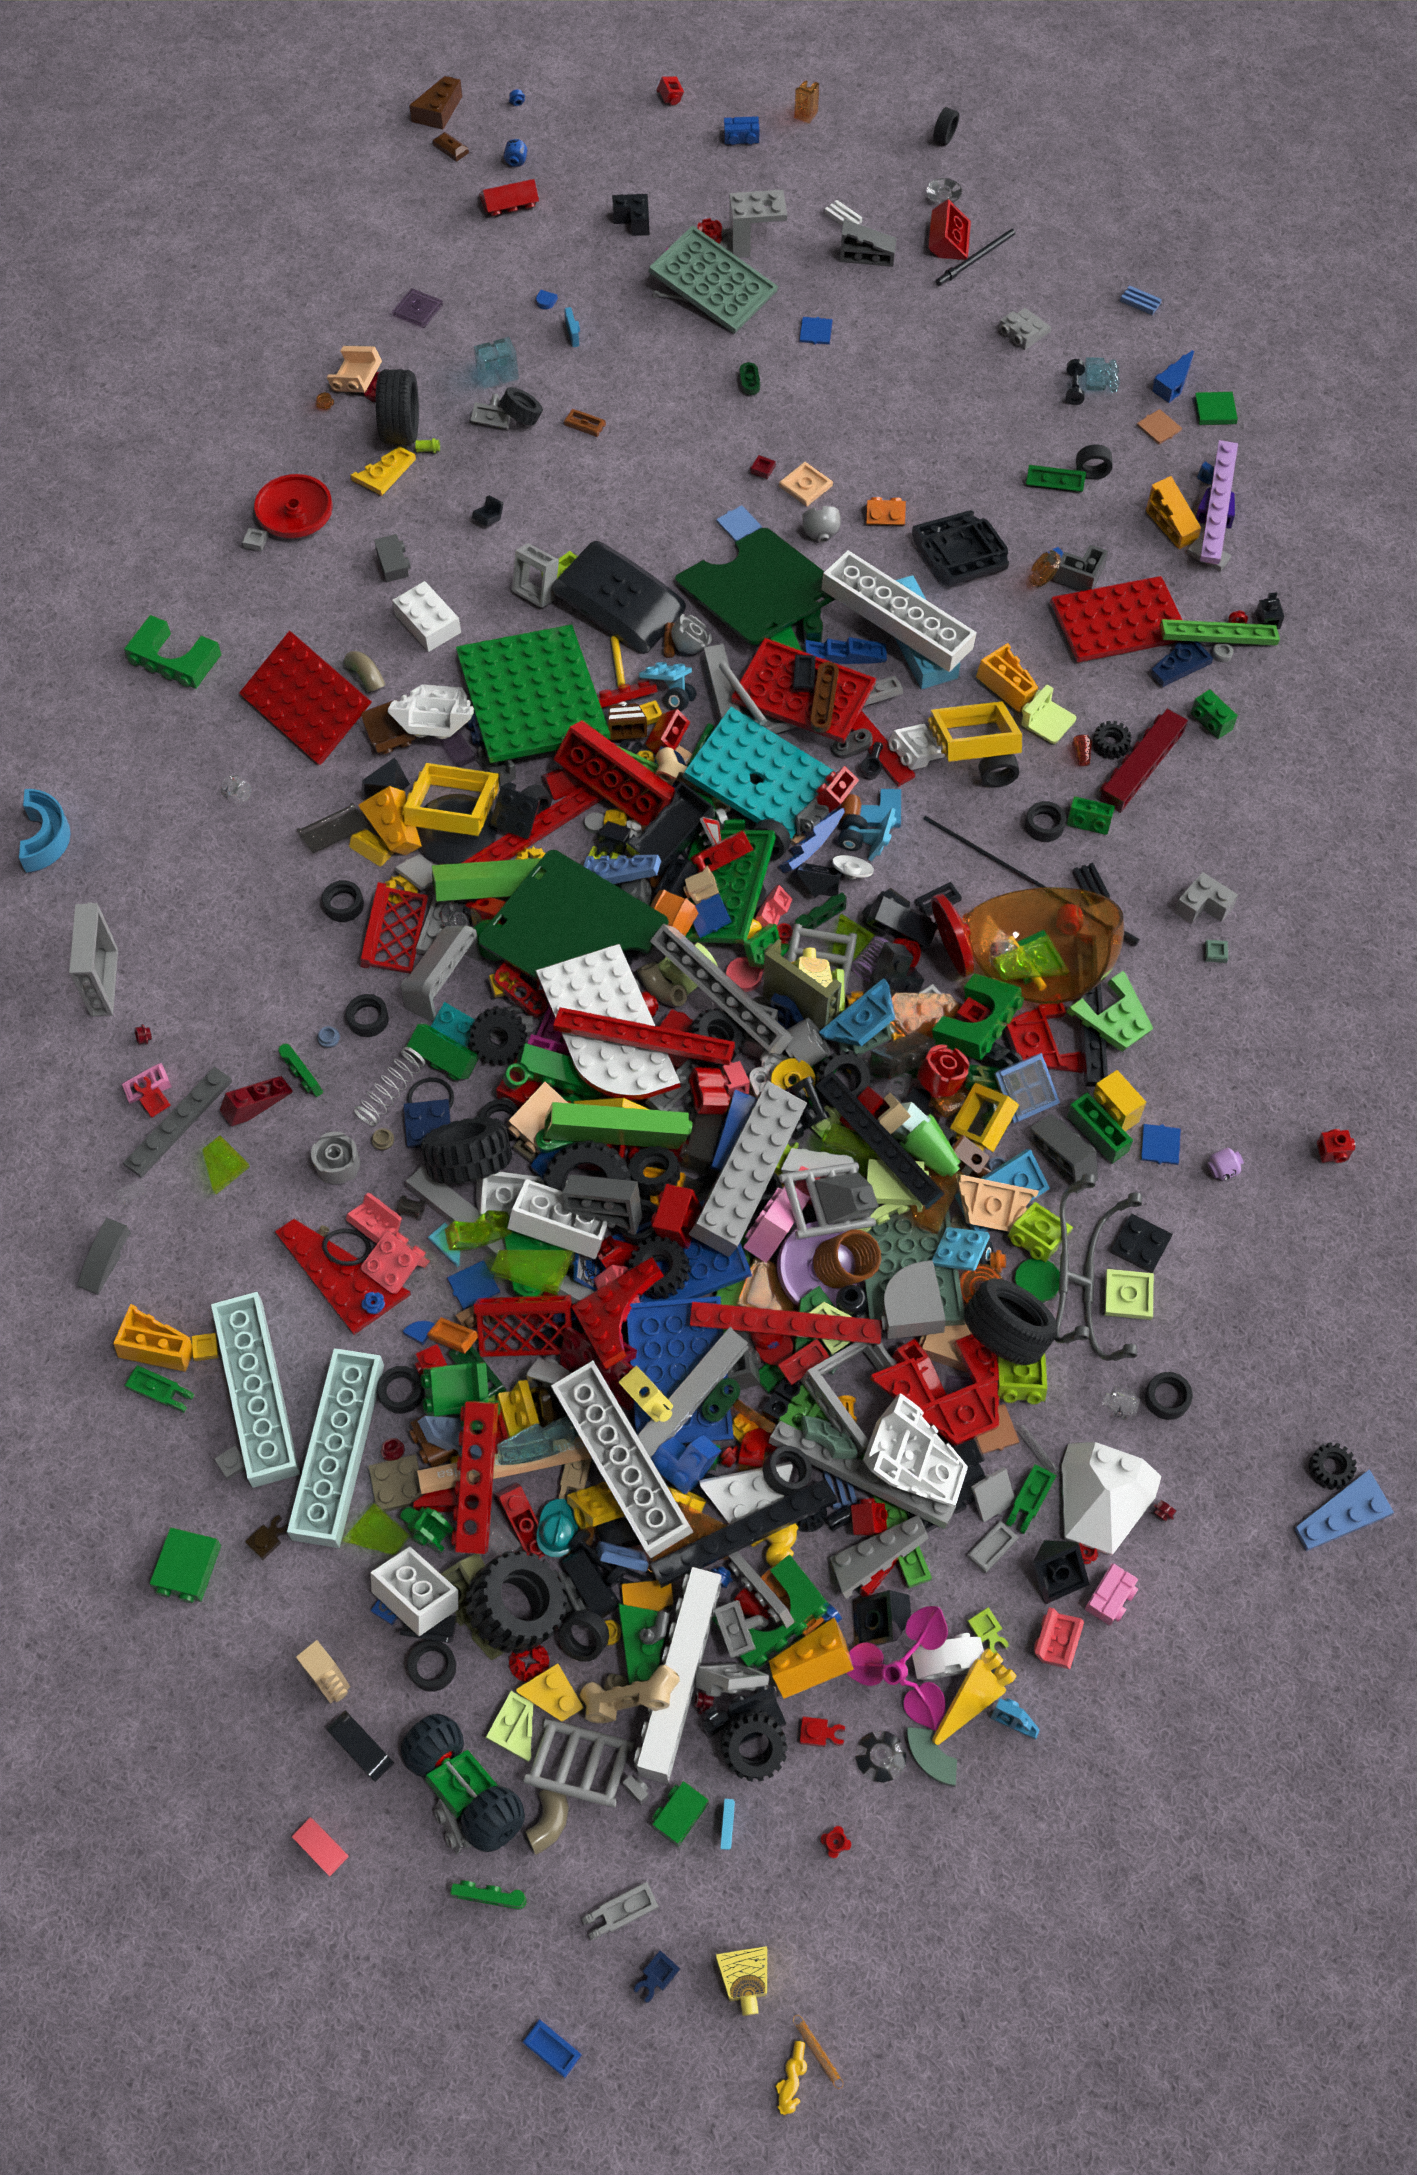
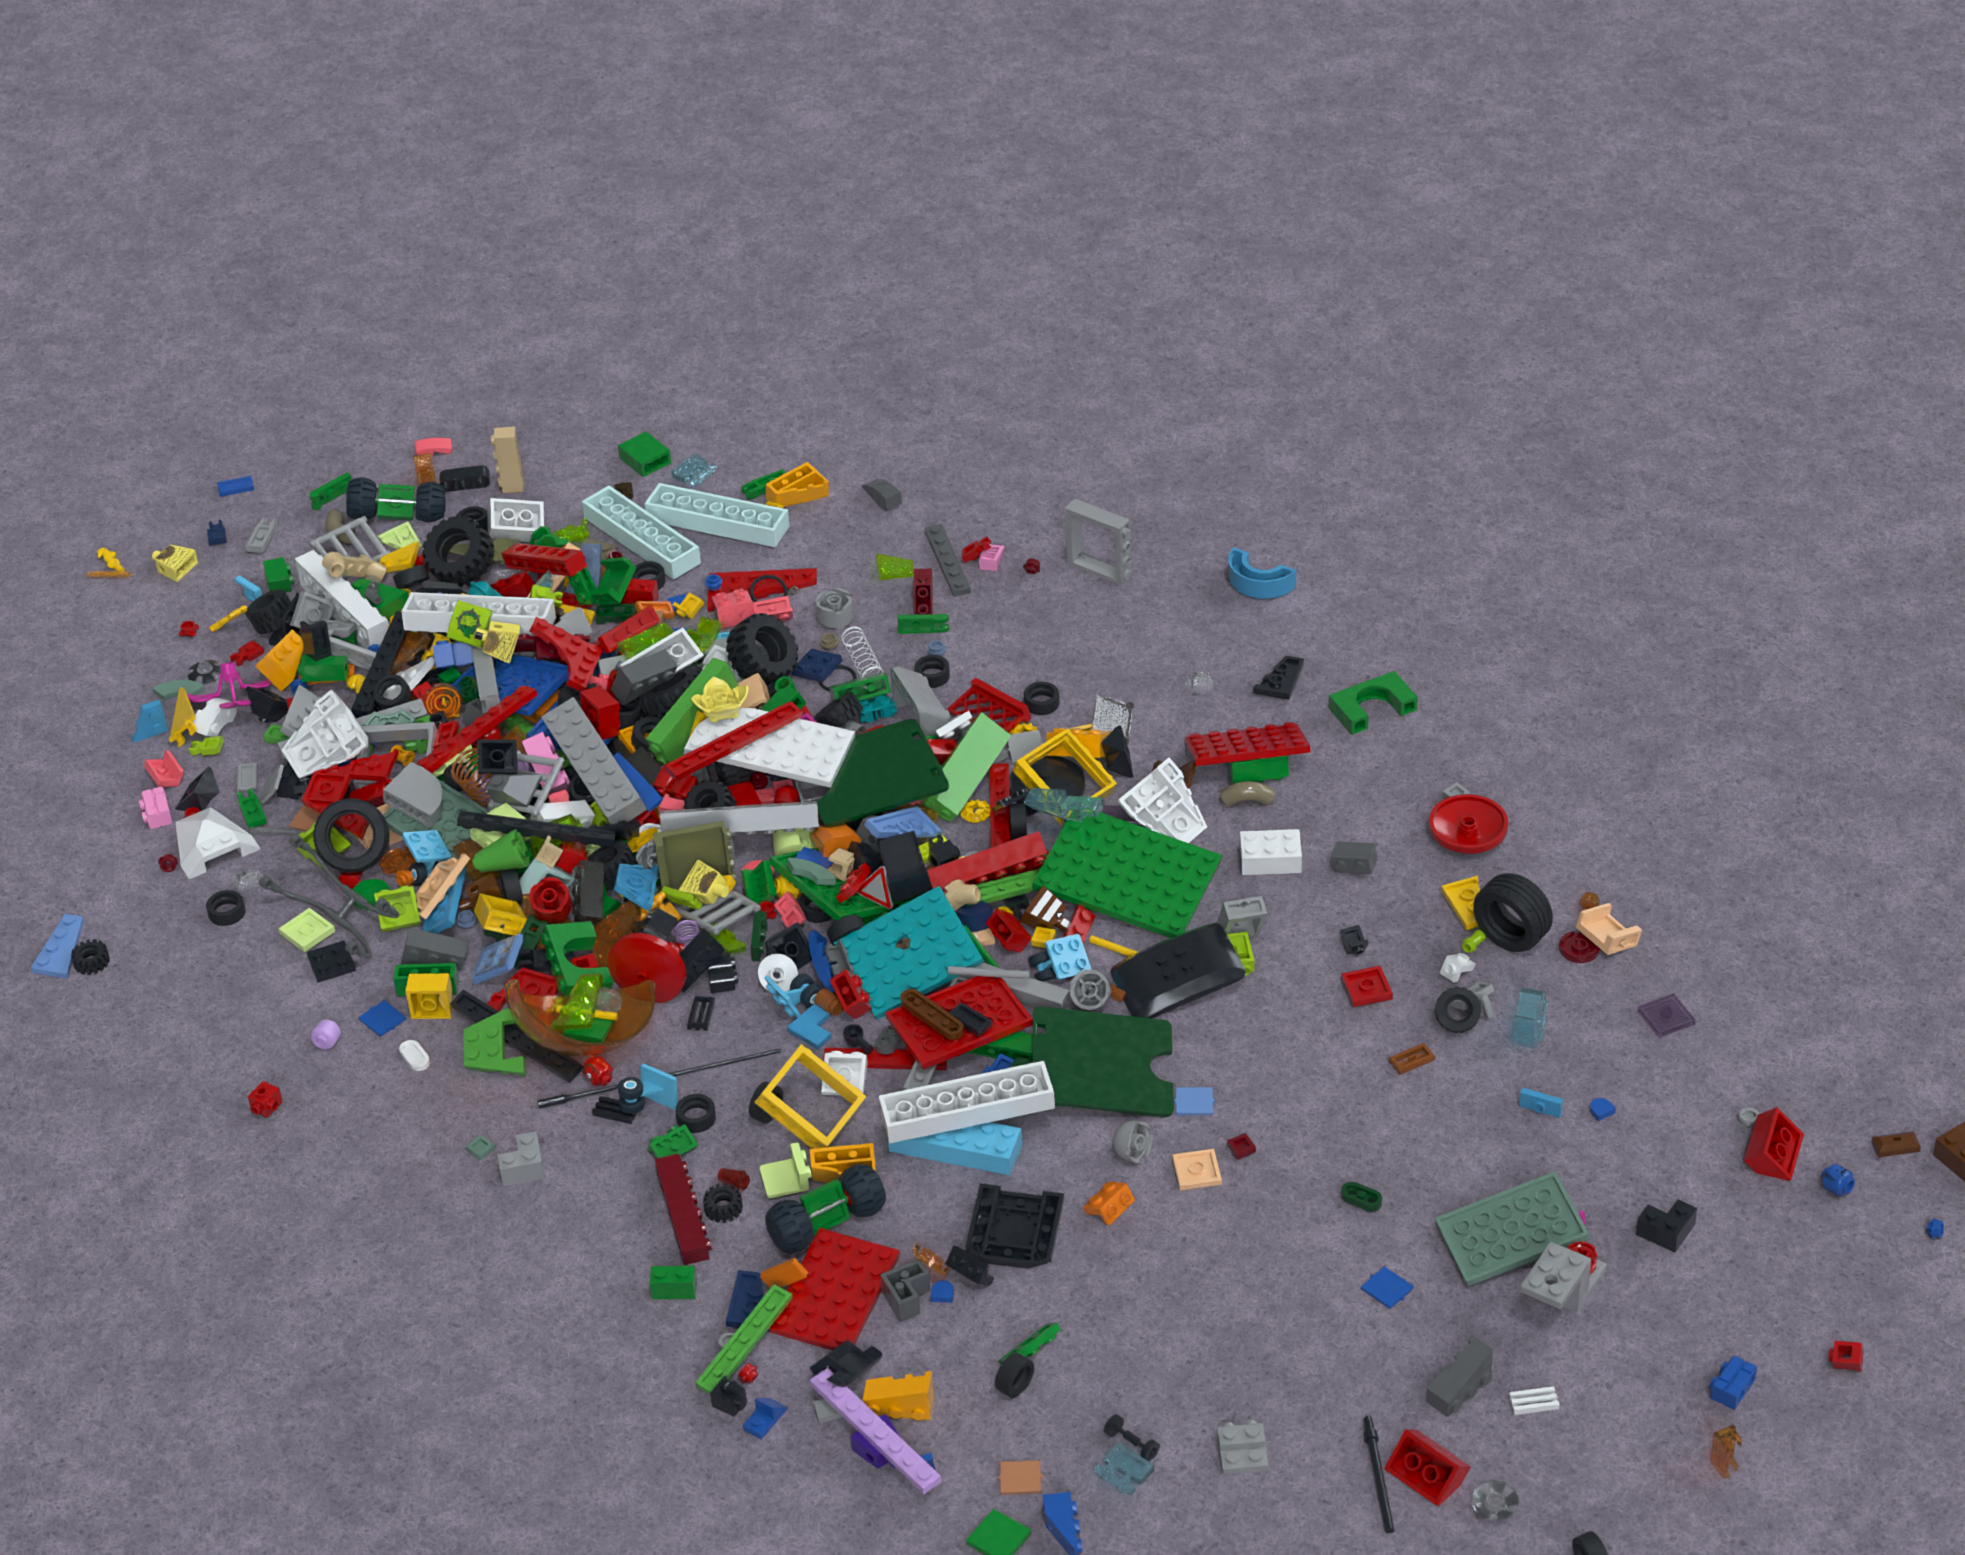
camera: 130 degrees right, 20 degrees down
(180, 1494) = (689, 470): none -> clear light blue plate
(181, 736) = (1282, 679): none -> black wing
(379, 1804) = (424, 468): none -> clear orange arch
(422, 1308) = (689, 606): none -> yellow bracket
(457, 907) = (960, 722): none -> white plate
(464, 439) = (1455, 965): none -> white bracket
(487, 224) = (1748, 1117): none -> light grey tile
(506, 747) = (1060, 805): none -> clear light blue slope
(531, 482) = (1366, 986): none -> red plate
(535, 1426) = (544, 592): none -> lime plate
(590, 1069) = (719, 700): none -> light yellow brick
(651, 1440) = (466, 620): none -> lime slope
(732, 895) = (811, 870): none -> sand green tile
(790, 1787) = (234, 614): none -> yellow animal
(792, 1593) = (315, 640): none -> black panel
(838, 1216) = (497, 757): none -> black slope
(1027, 546) = (969, 1266): none -> black bracket
(1076, 862) = (652, 1085): none -> medium azure plate
(1102, 663) = (795, 1224): none -> black plate
(1144, 643) = (784, 1273): none -> orange tile
(1175, 1081) = (414, 1055): none -> white tile
(1181, 559) = (847, 1362): none -> black plate
(1257, 587) = (765, 1417): none -> blue slope

